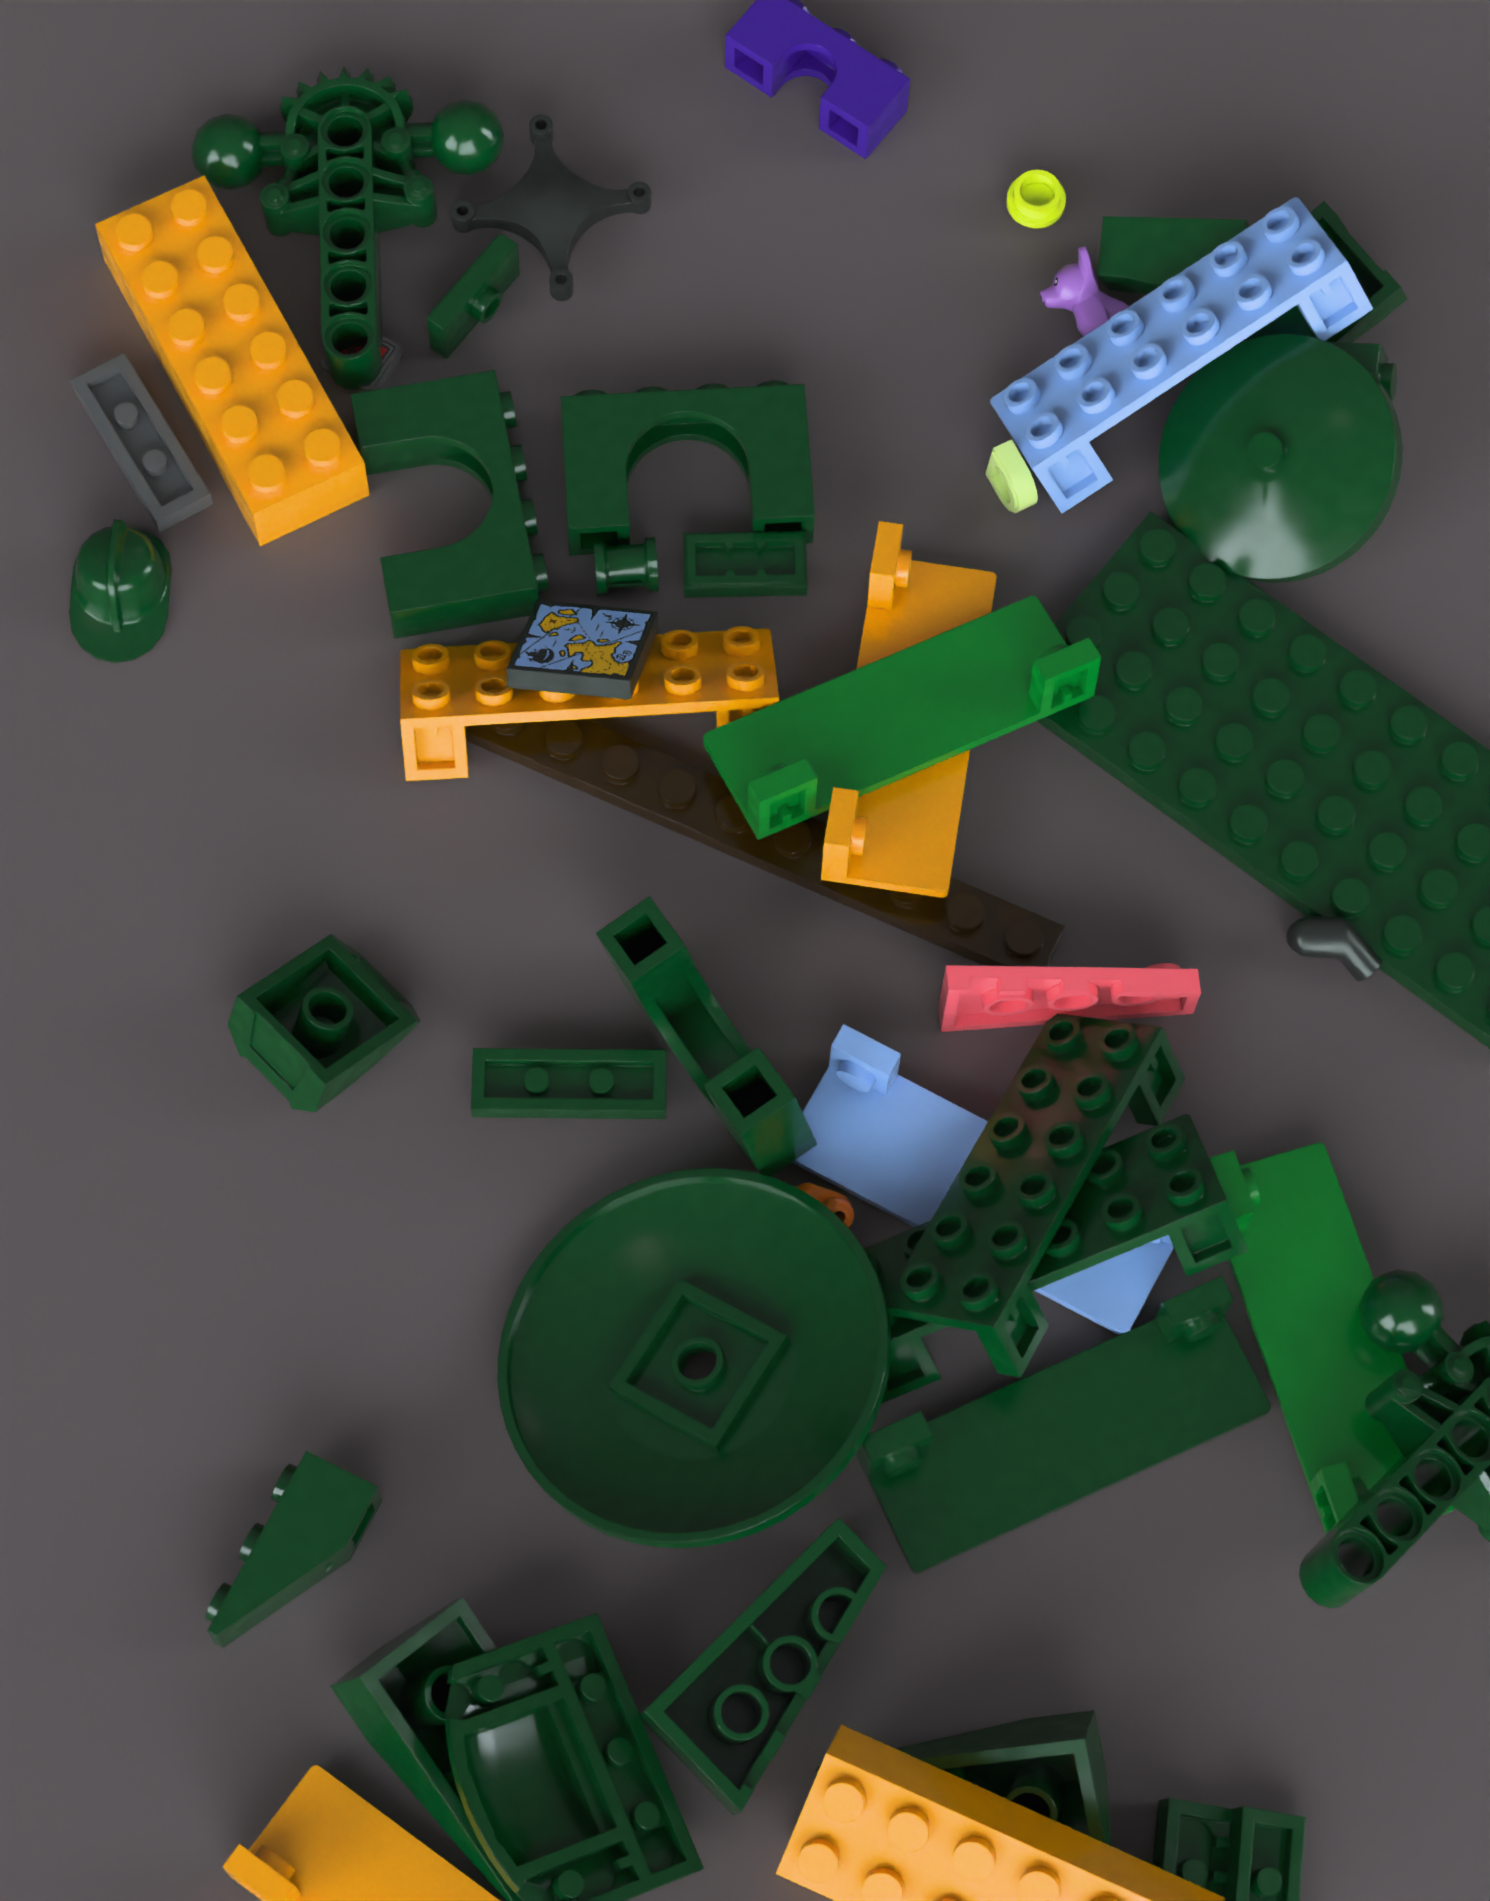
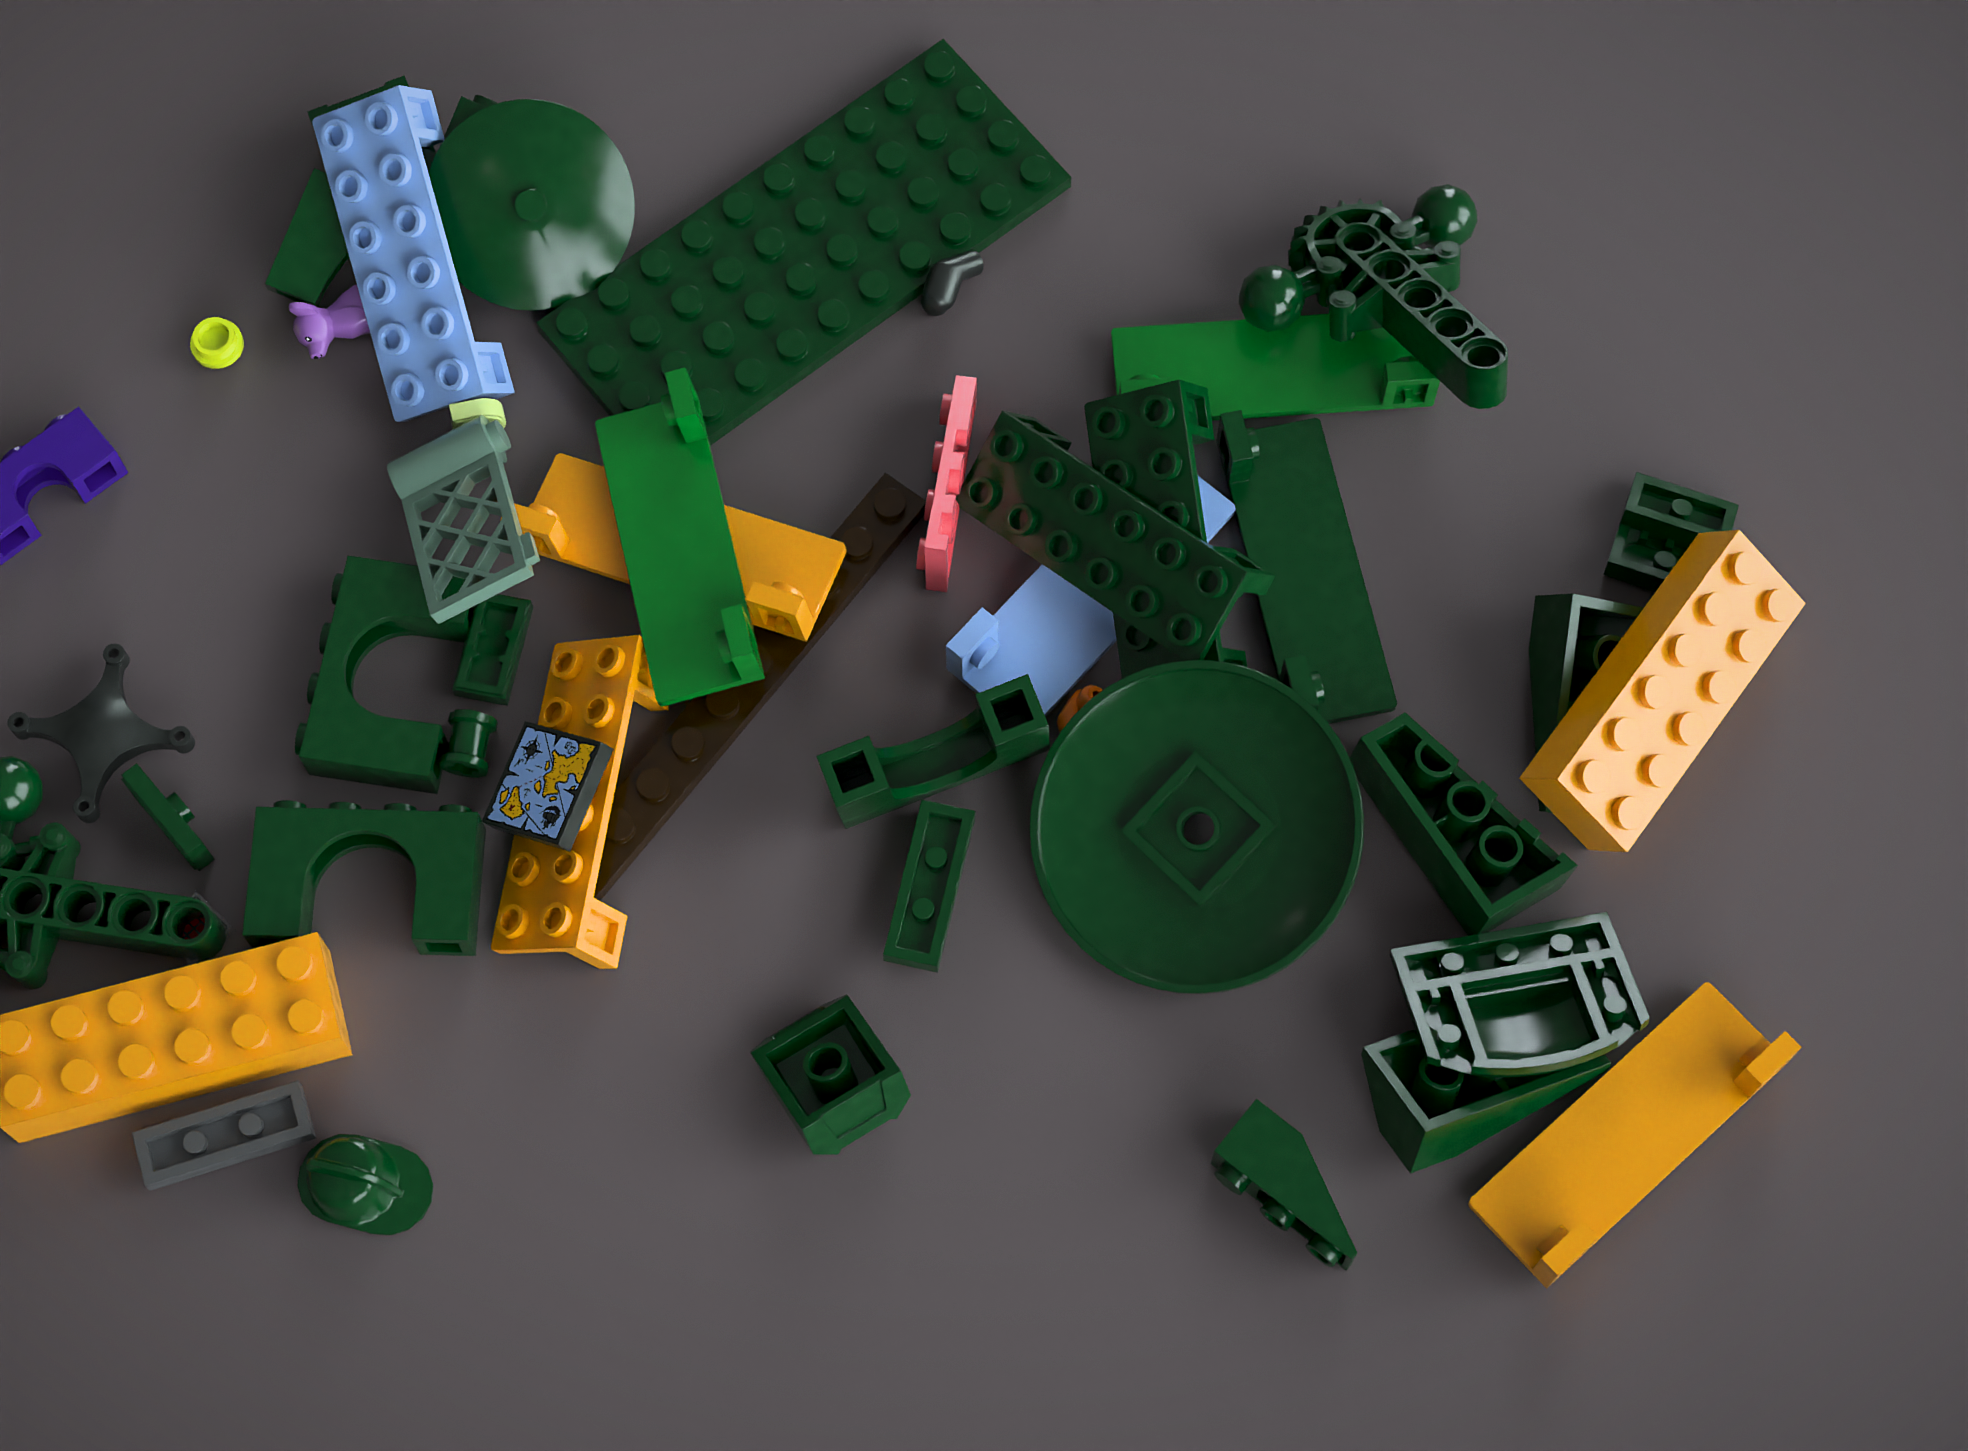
camera: 75 degrees left, 0 degrees up
(929, 457) = (446, 473): none -> sand green piece

